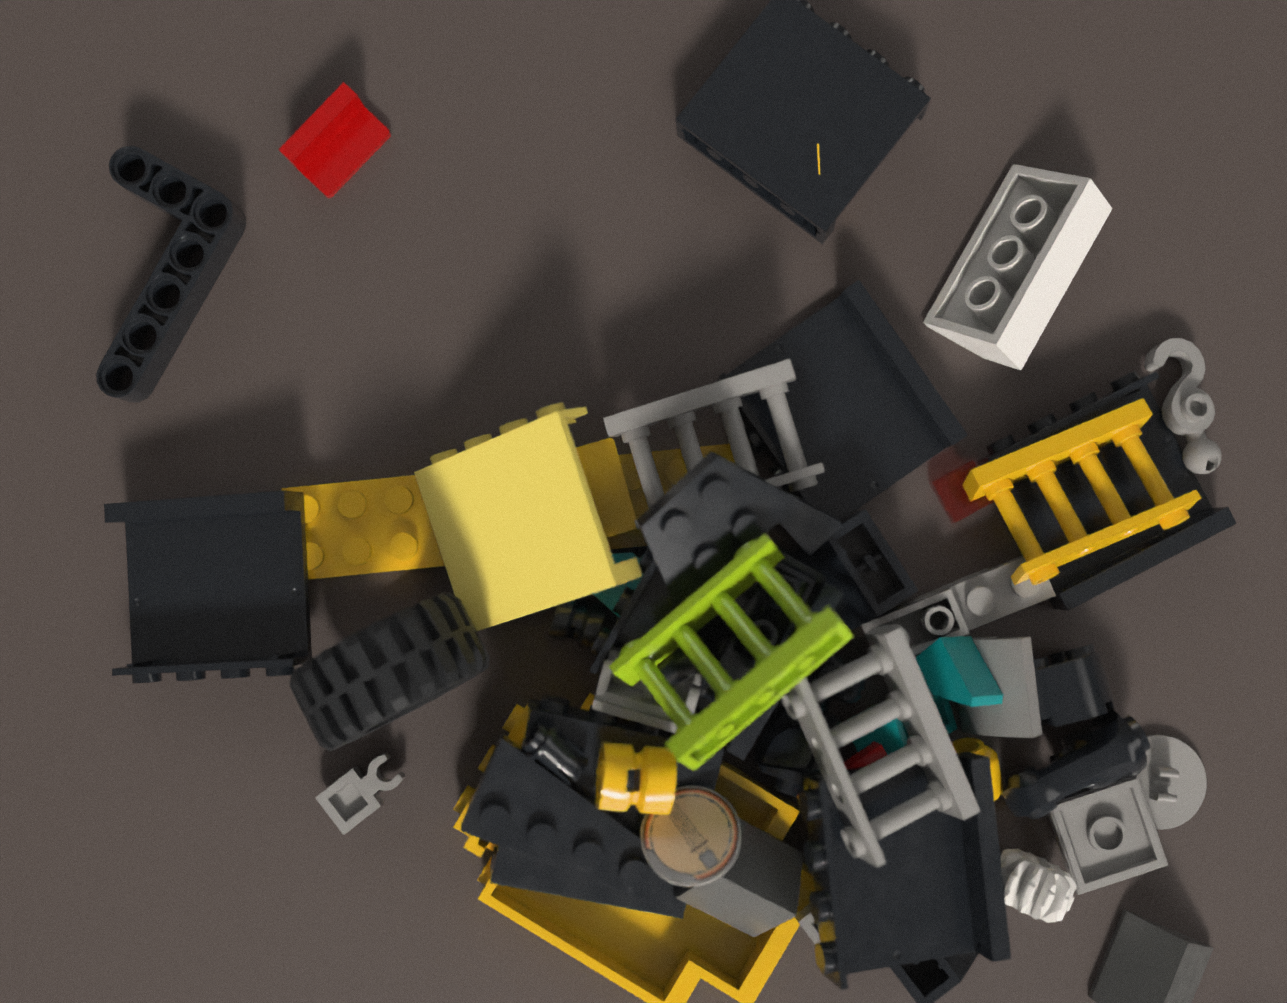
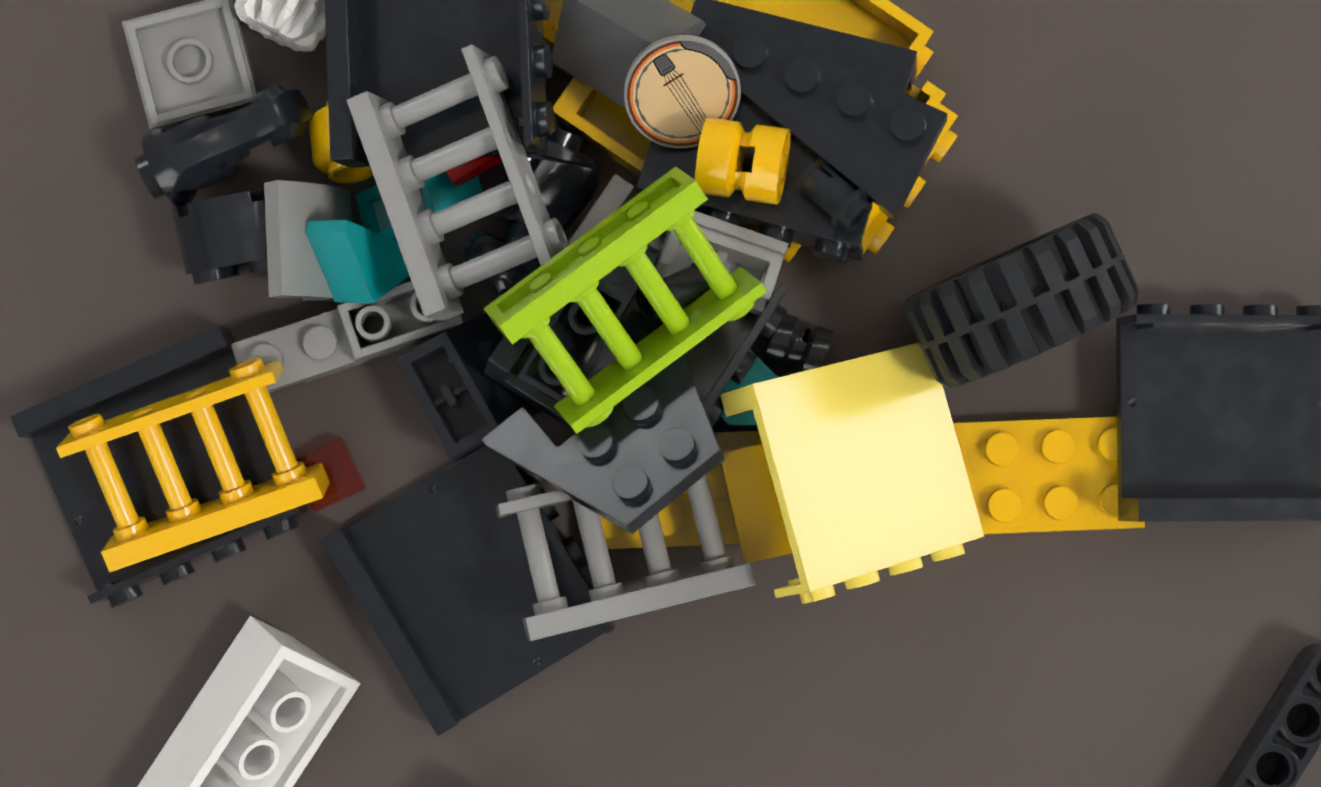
camera: 175 degrees left, 0 degrees up
(356, 795) = (1071, 157): light grey plate -> none
(1172, 781) = (108, 118): light grey piece -> none
(1186, 407) = (52, 559): light grey piece -> none

